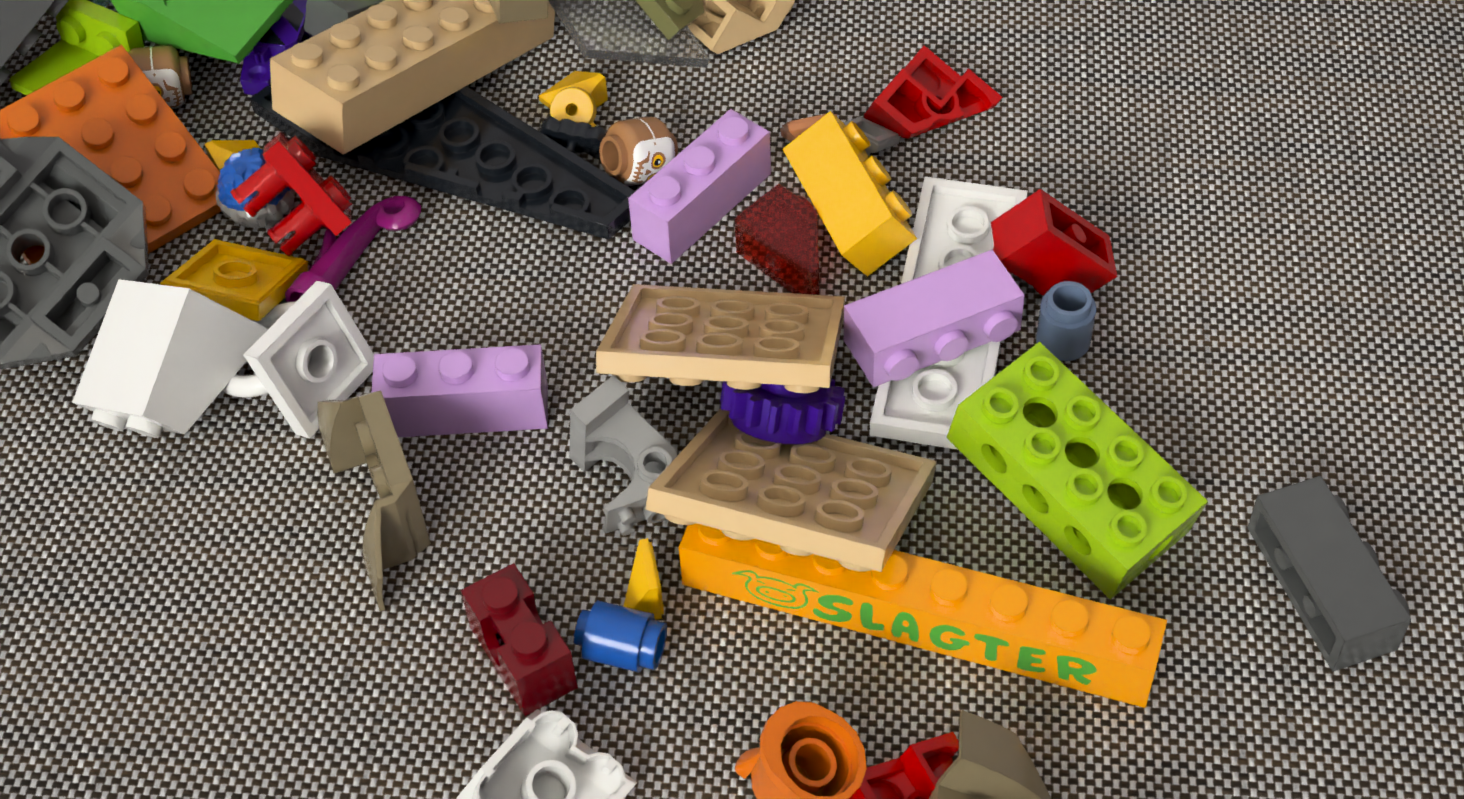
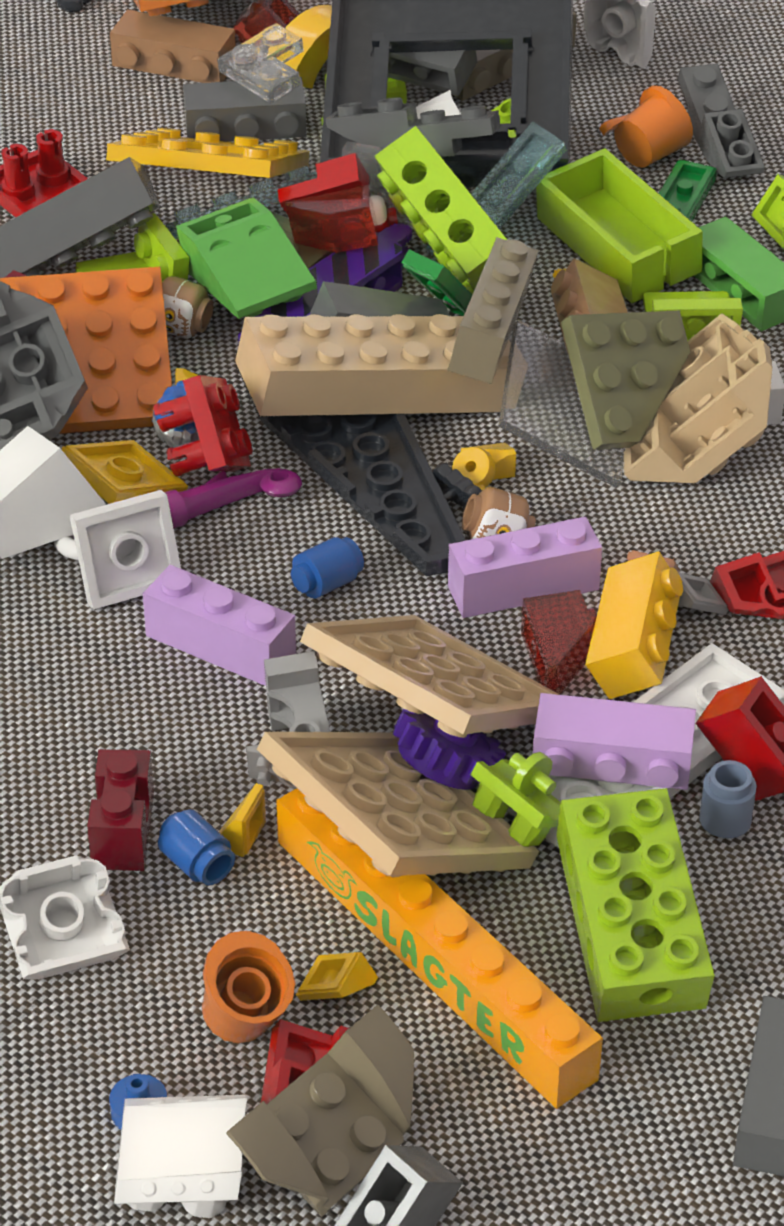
camera: 30 degrees right, 10 degrees down
(362, 433) = (104, 681): dark tan piece -> none
(513, 277) = (326, 566): none -> blue brick
(856, 692) = (337, 976): none -> yellow slope
(893, 409) = (524, 788): none -> lime hips

